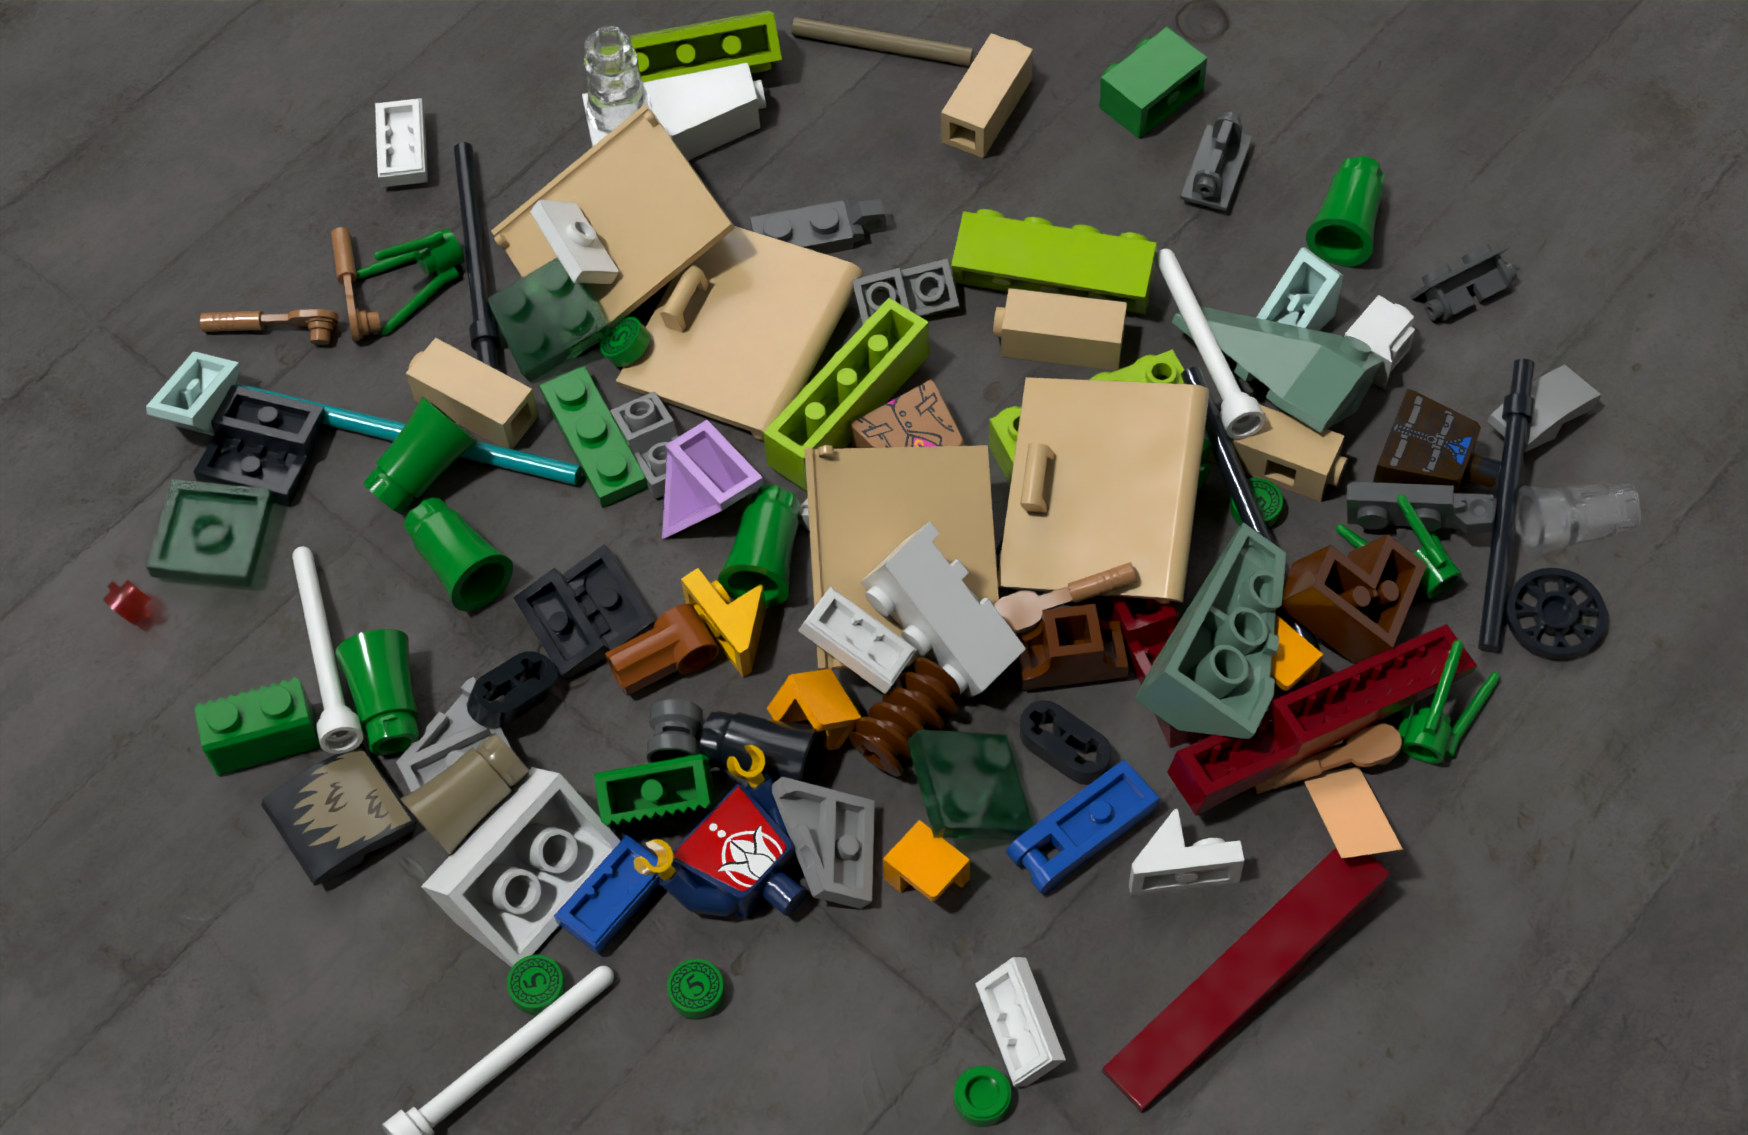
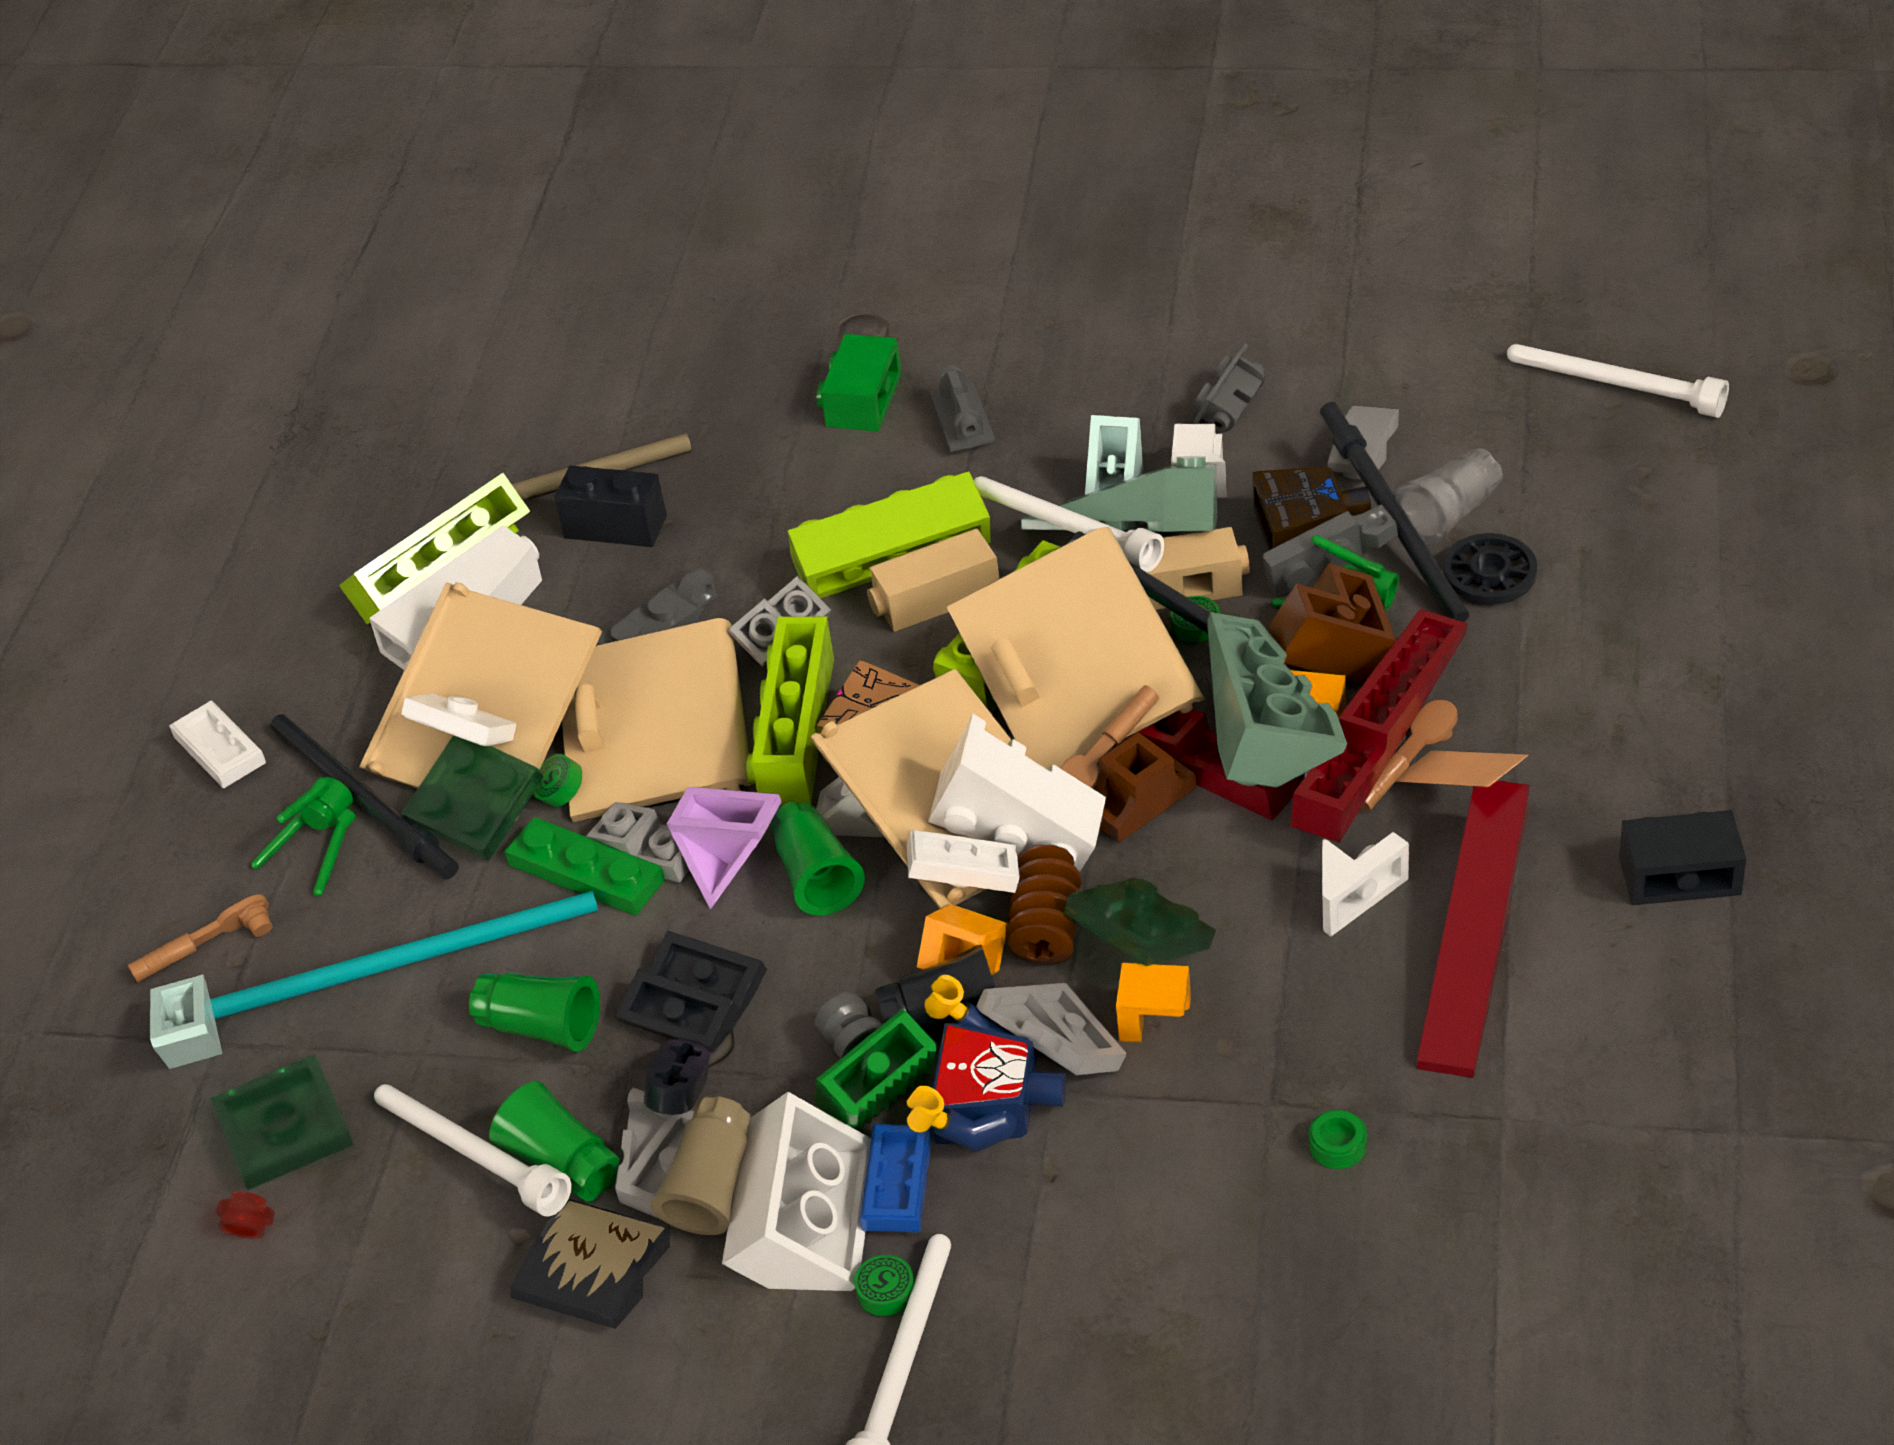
camera: 30 degrees left, 15 degrees down
(257, 726) = (459, 1235): green brick -> none
(261, 442) = (271, 1027): black slope -> none
(360, 321) = (285, 894): medium nougat piece -> none
(417, 456) = (441, 950): green plant -> none
(473, 393) = (446, 887): tan brick -> none
(612, 79) = (401, 579): clear plant -> none
(674, 644) = (791, 969): dark orange piece -> none
(695, 988) = (1029, 1205): green tile -> none
(733, 624) = (826, 930): yellow slope -> none
(854, 90) = (610, 506): none -> black brick
(987, 95) = (728, 457): tan brick -> none
(1020, 1021) = (1325, 1063): white plate -> none
(1067, 737) = (1186, 858): black beam -> none
(1084, 825) = (1254, 904): blue plate -> none
(1347, 218) = (1098, 385): green plant -> none
(1428, 734) = (1465, 688): green plant -> none
(1481, 1024) = (1682, 857): none -> black brick

